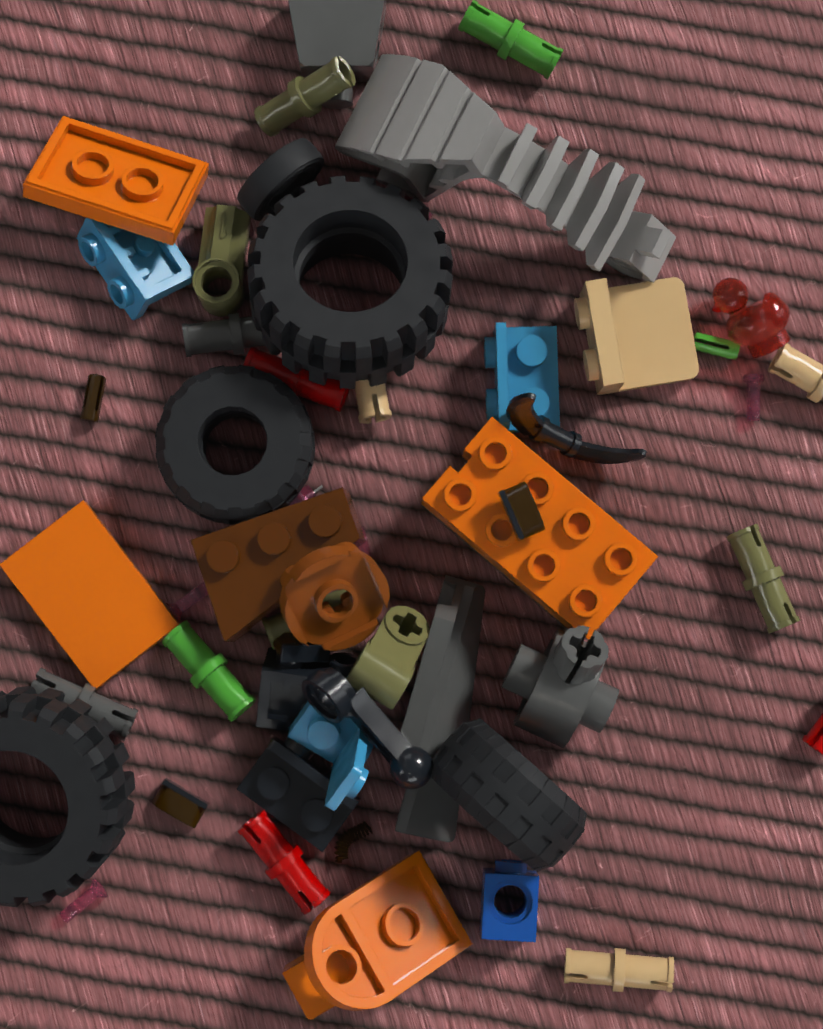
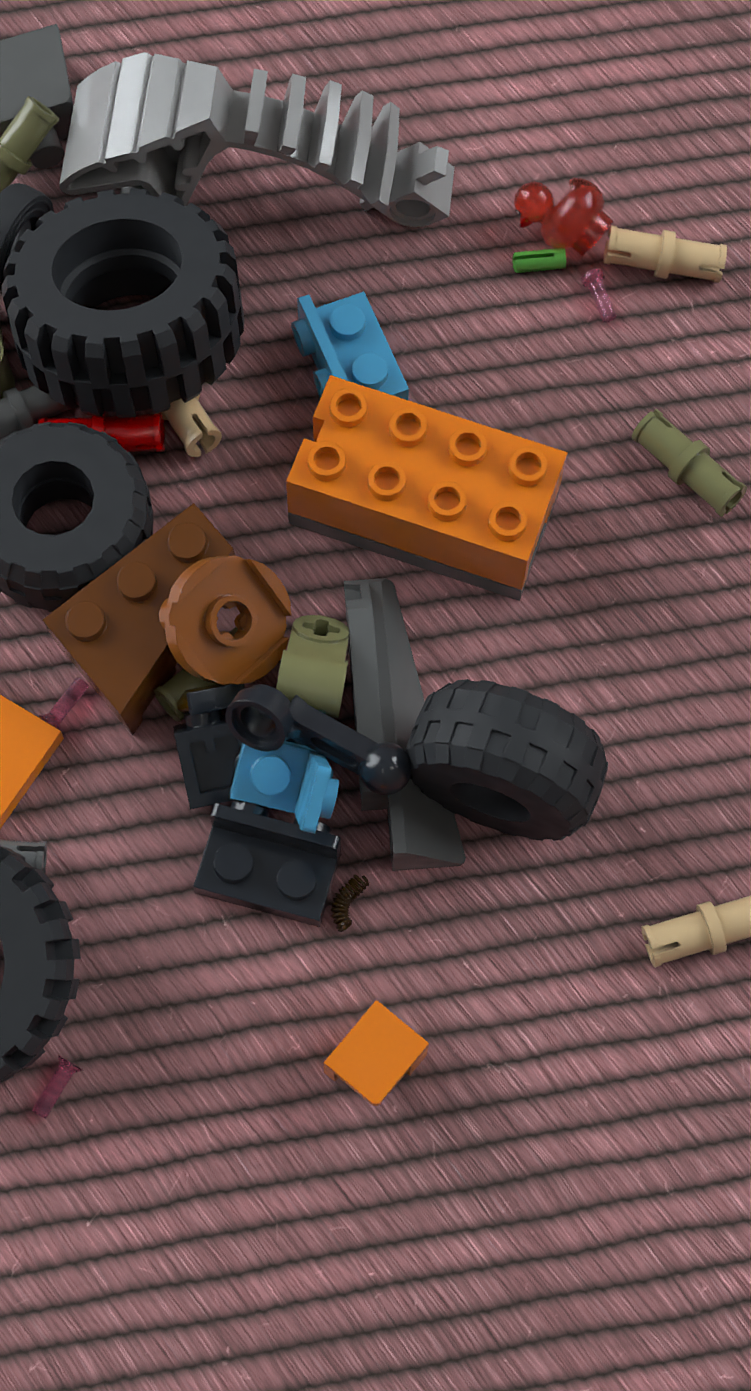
camera: 20 degrees left, 15 degrees down
(180, 803) = (132, 931): dark brown piece -> none
(208, 671) = (113, 769): bright green pin -> none
(284, 862) = (278, 948): red pin -> none
(389, 934) = (433, 974): orange tile -> none
(510, 39) = (206, 44): bright green pin -> none
(515, 925) = (549, 923): blue brick -> none
(521, 511) = (400, 449): dark brown piece -> none
(540, 429) = (363, 370): black piece -> none
(562, 686) = (519, 628): dark grey piece -> none
(636, 334) = (450, 271): tan bracket -> none

